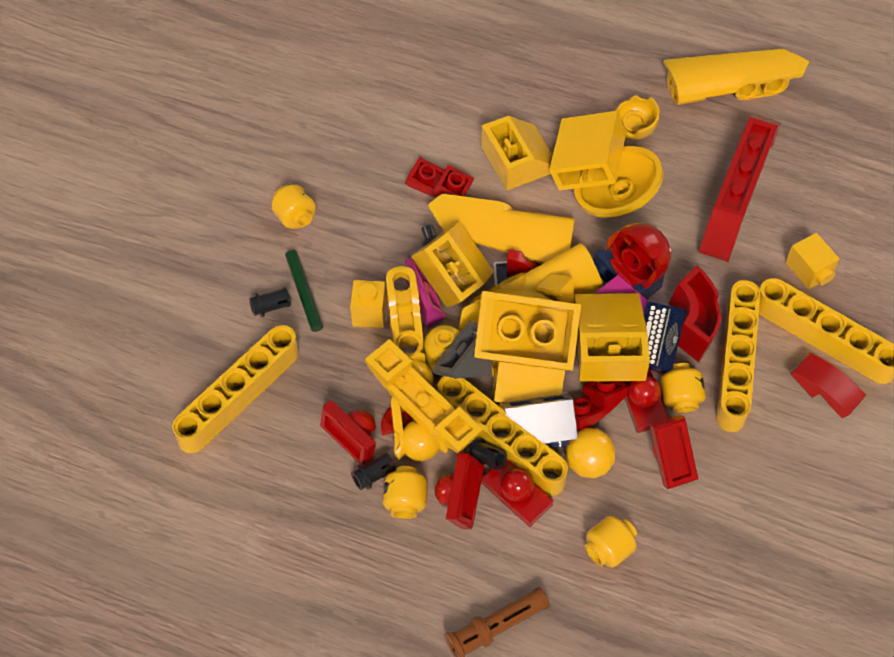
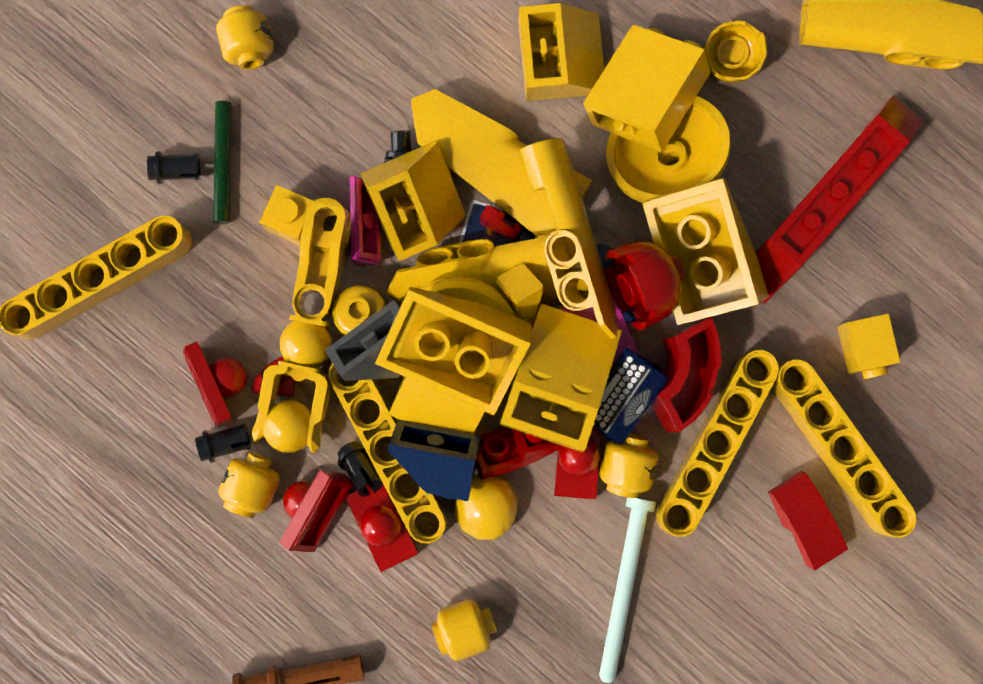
camera: 20 degrees right, 25 degrees up
(420, 399) = (297, 390): yellow slope -> none
(436, 181) = (445, 58): red slope -> none
(550, 208) = (552, 171): none -> yellow panel
(673, 451) = (580, 549): red tile -> none
(688, 231) = (713, 247): none -> yellow slope
(704, 416) = (624, 587): none -> light aqua bar

